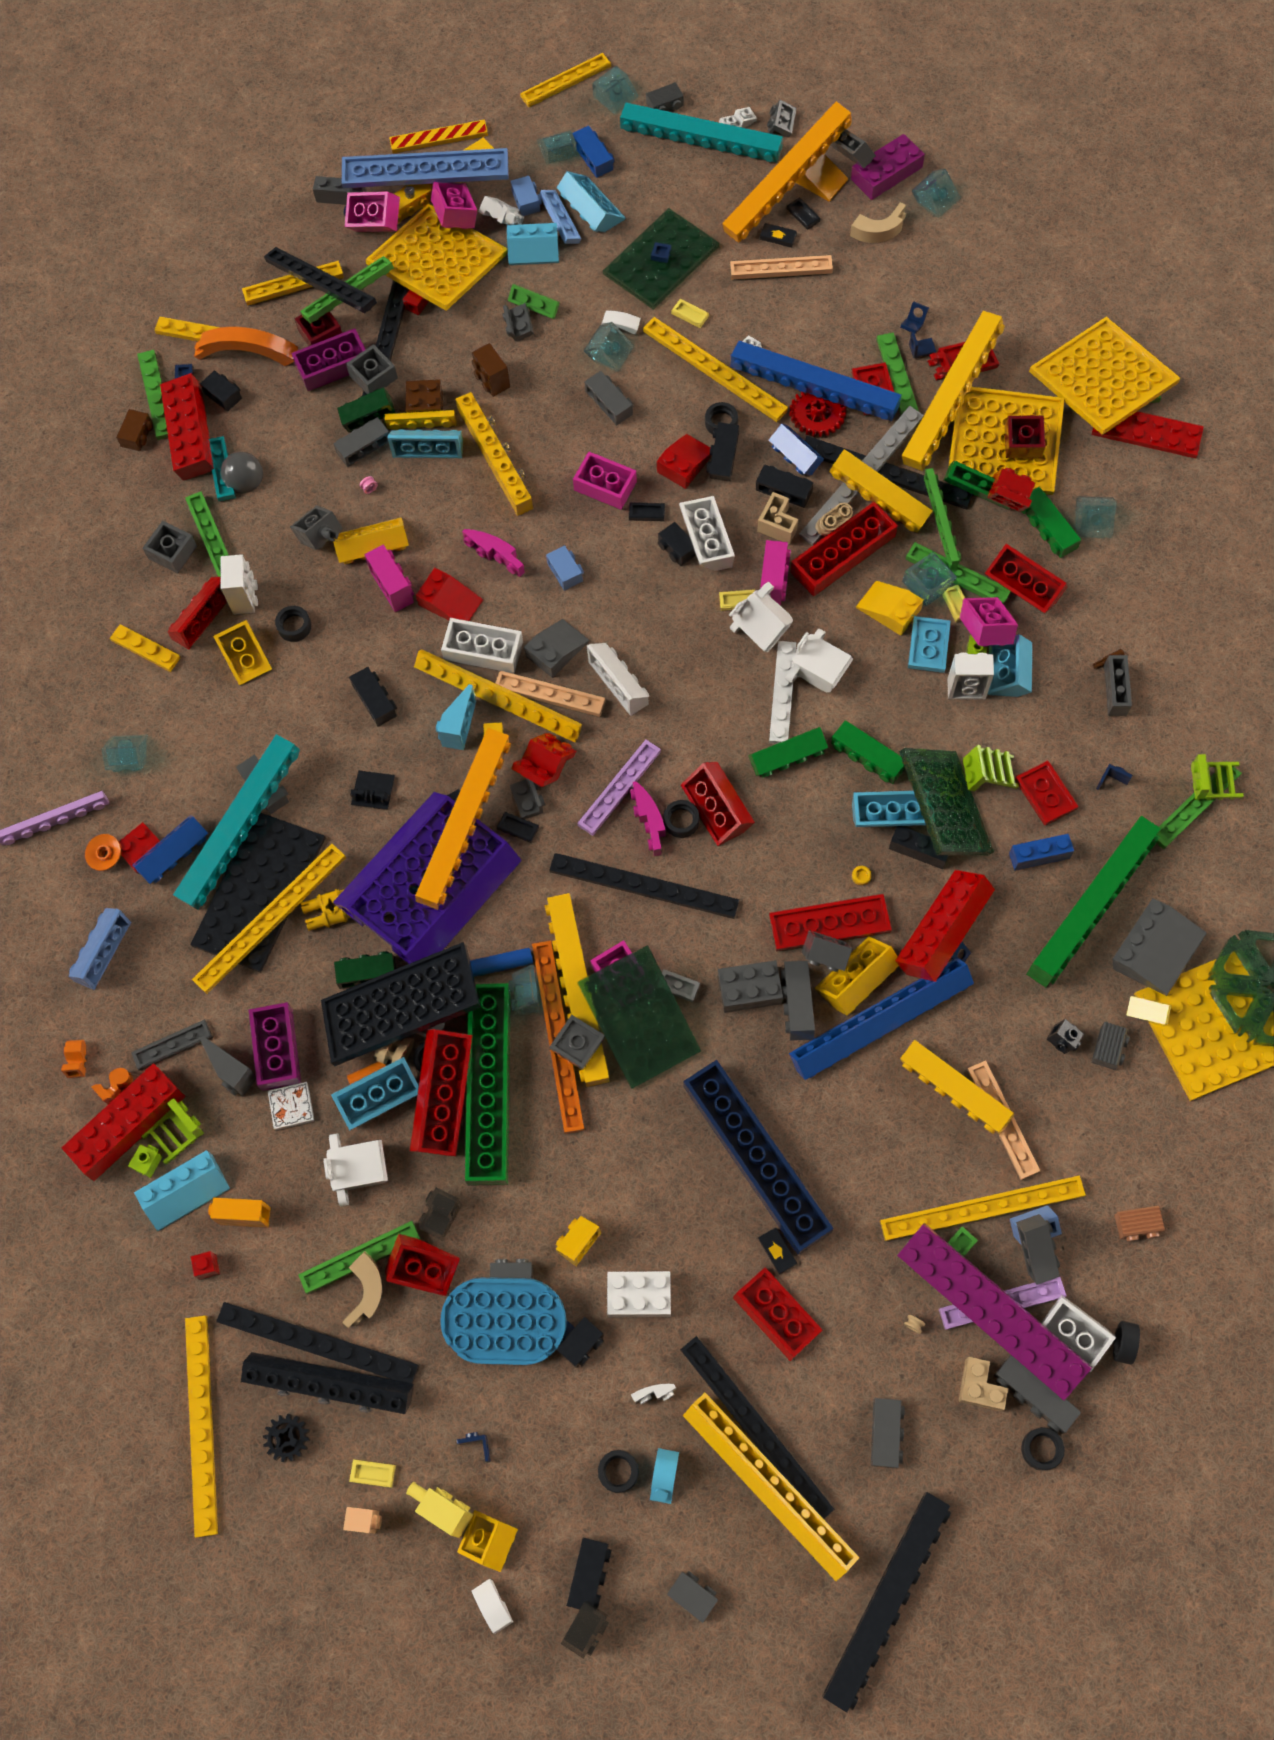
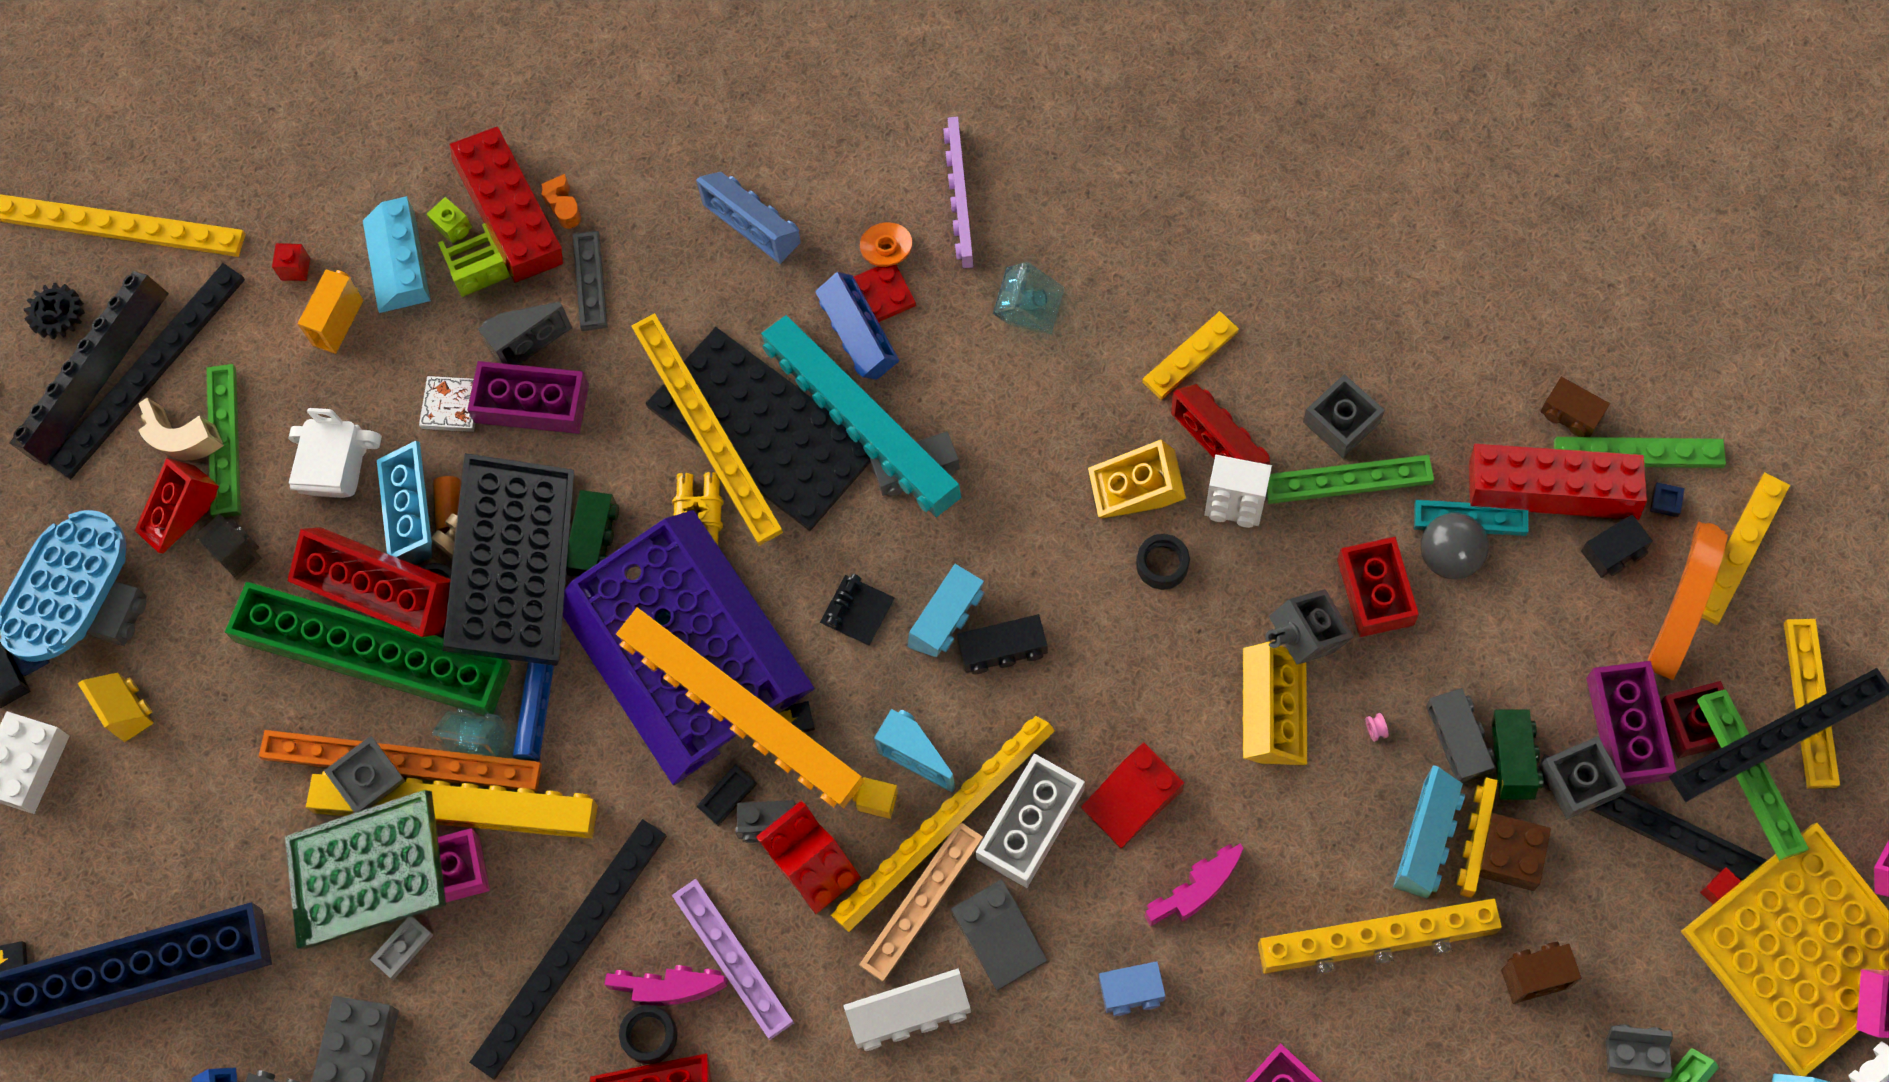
camera: 110 degrees right, 0 degrees up
(75, 1056) = (621, 166): orange leg -> none
(280, 502) = (1377, 586): none -> red brick
(362, 729) = (946, 612): none -> medium azure slope
(390, 577) = (1188, 712): dark pink brick -> none

